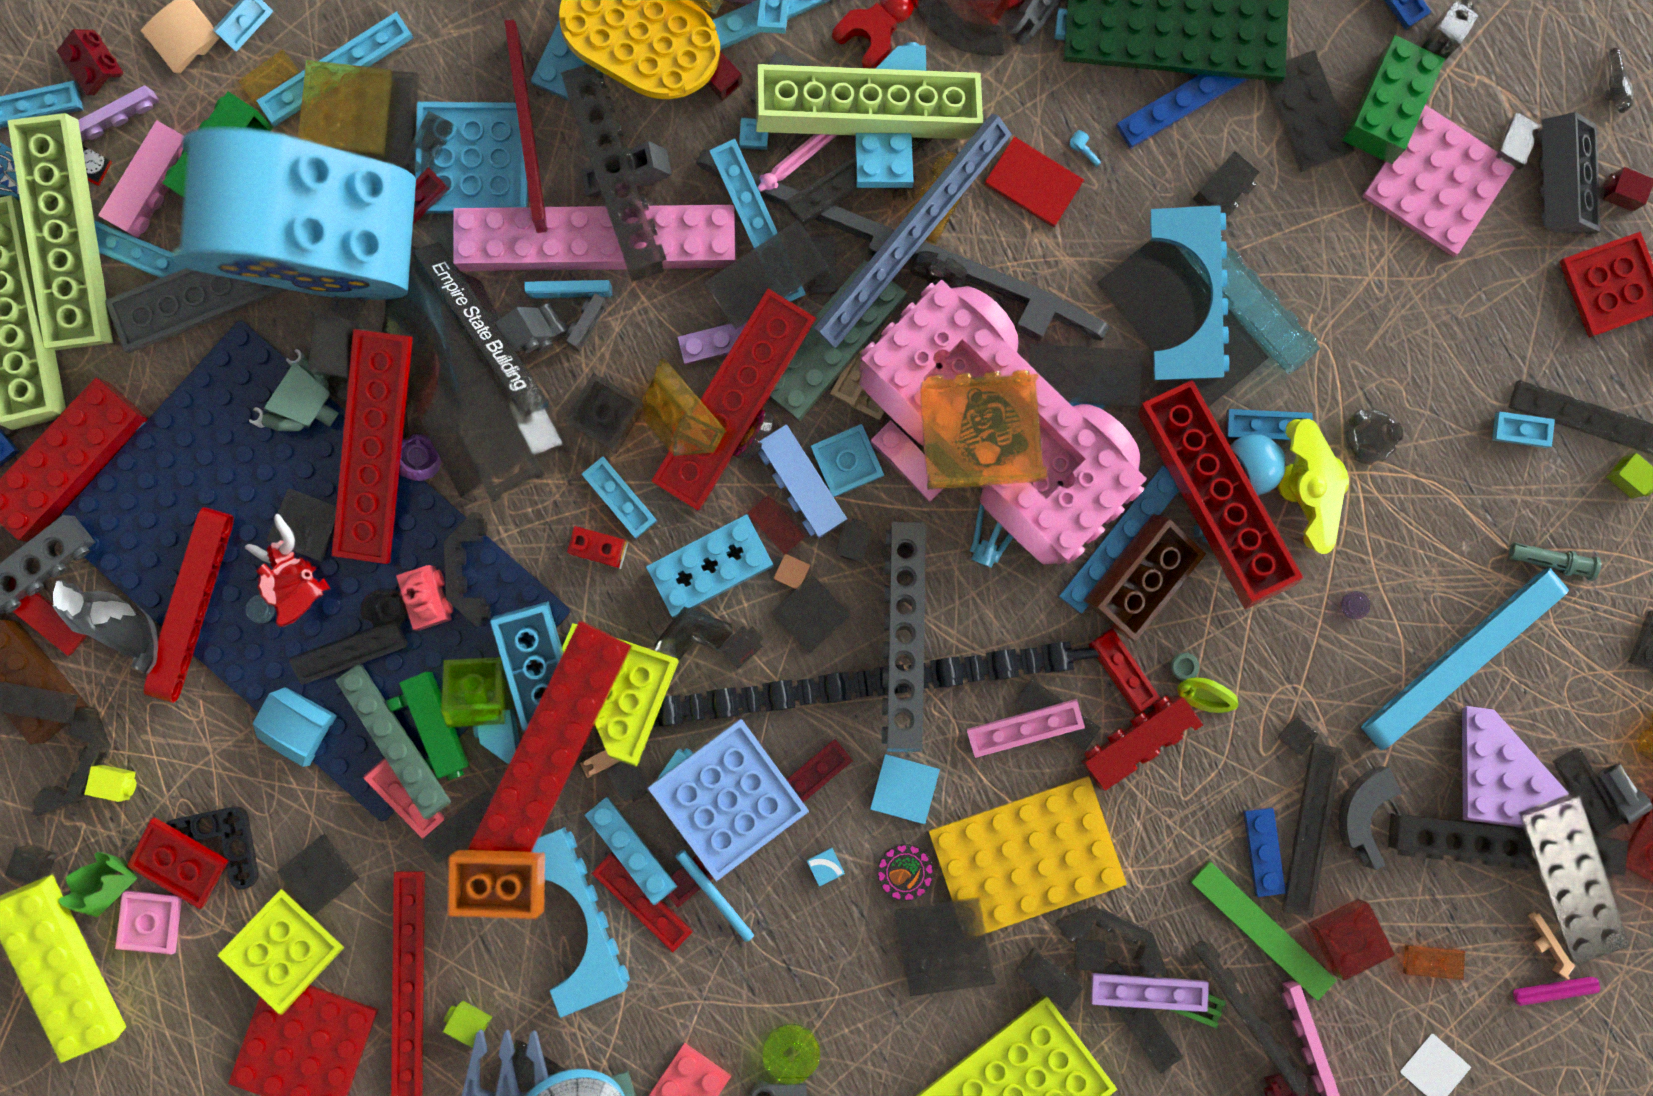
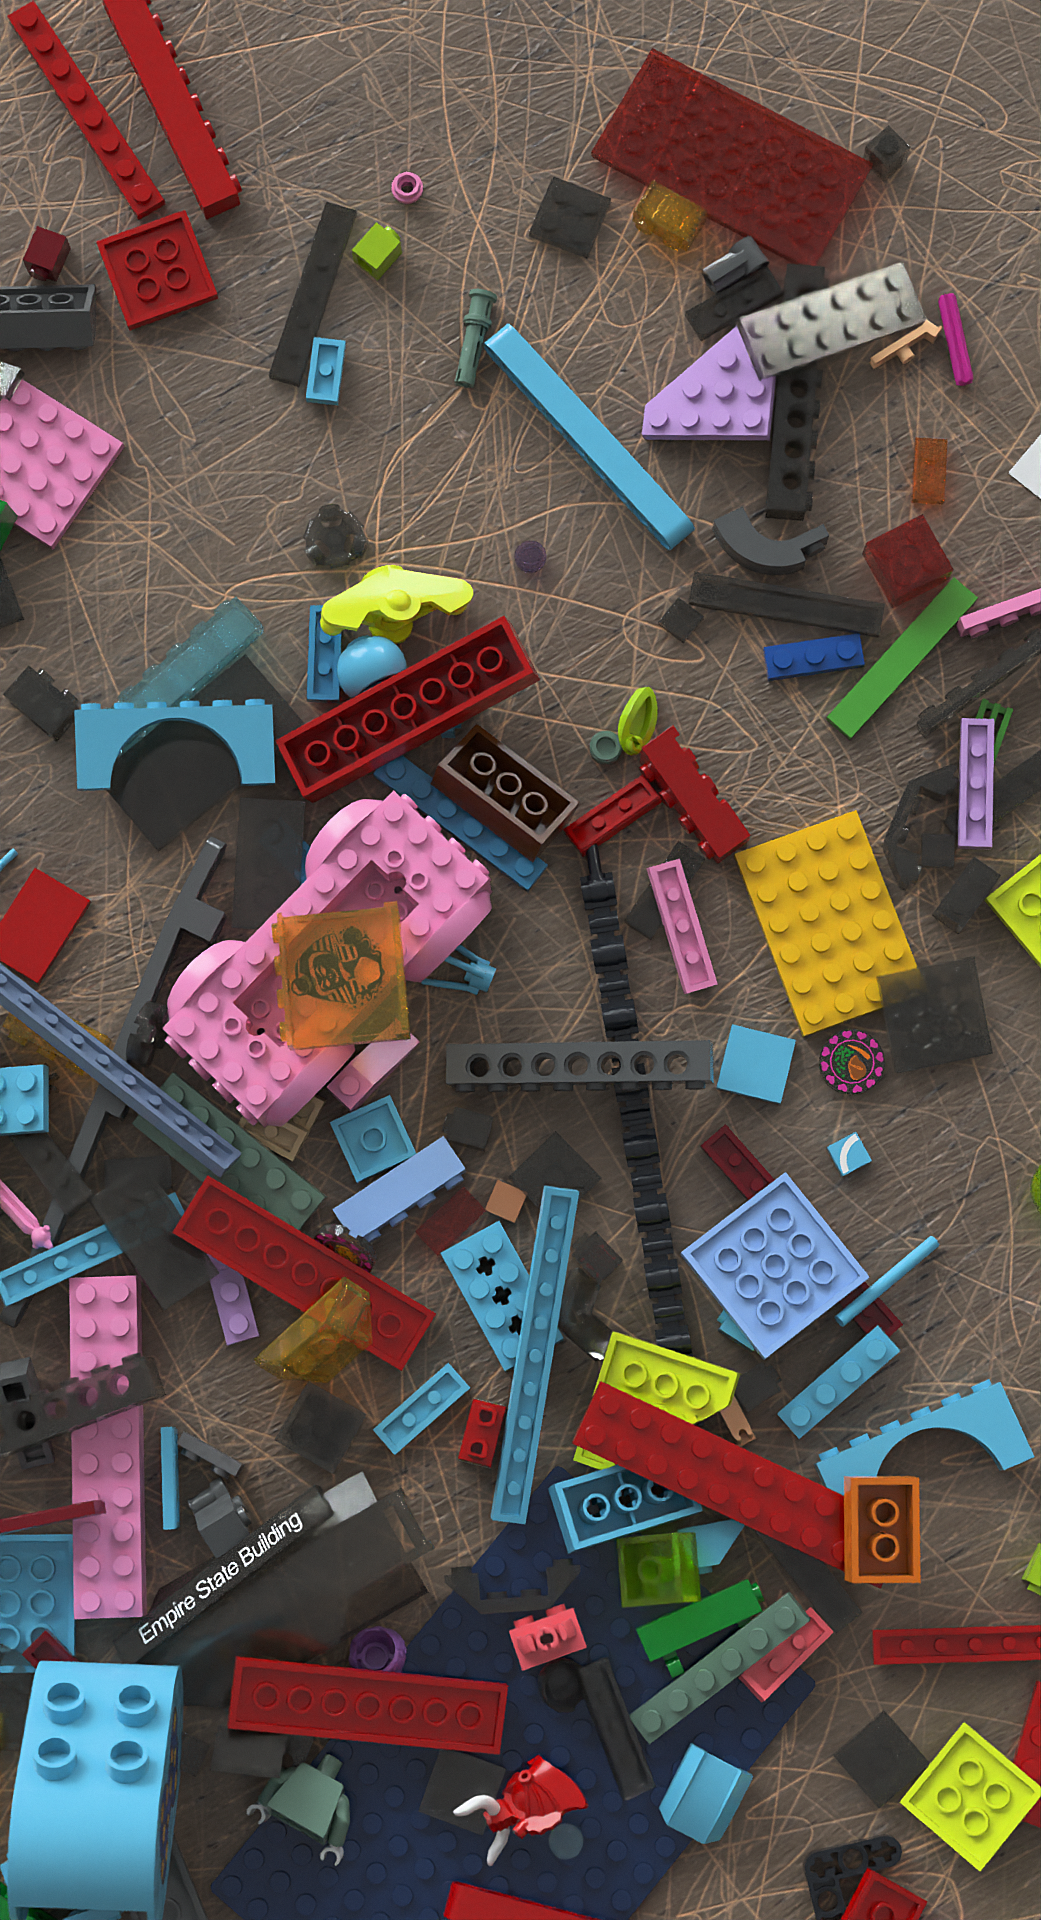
camera: 85 degrees left, 5 degrees down
(657, 918) = (883, 1386): red tile -> none
(659, 591) = (534, 1354): none -> medium azure plate

